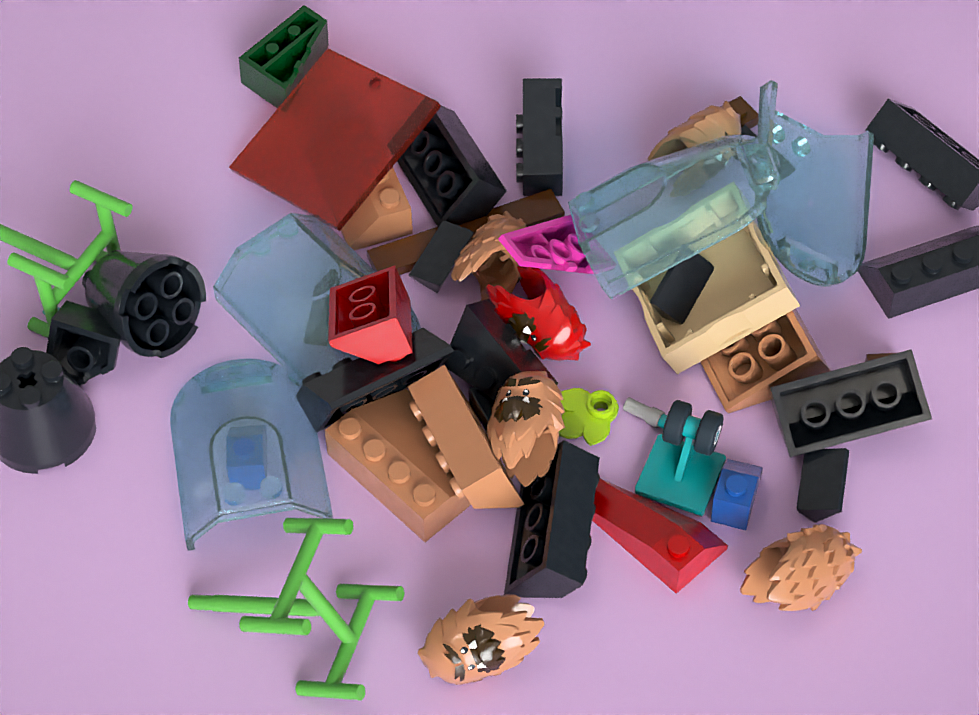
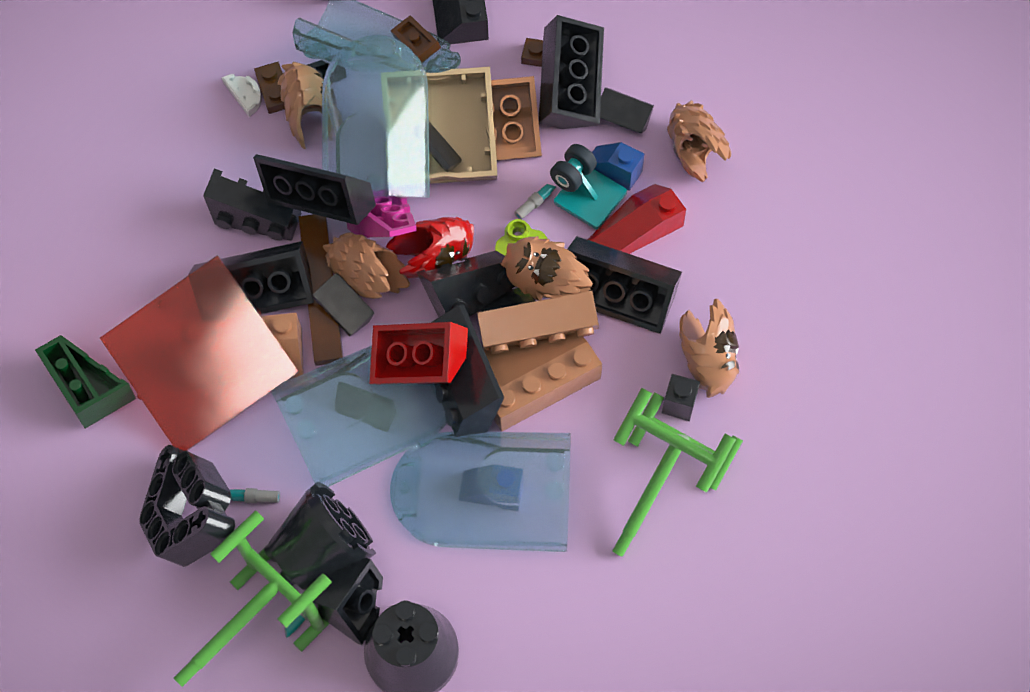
camera: 75 degrees left, 10 degrees up
(157, 168) = (178, 479): none -> black piece
(195, 241) = (253, 495): none -> light grey piece
(408, 623) = (680, 397): none -> black brick
(558, 168) = (315, 190): none -> black slope
(711, 92) = (245, 92): none -> white tile
(836, 230) = (416, 38): none -> reddish brown plate

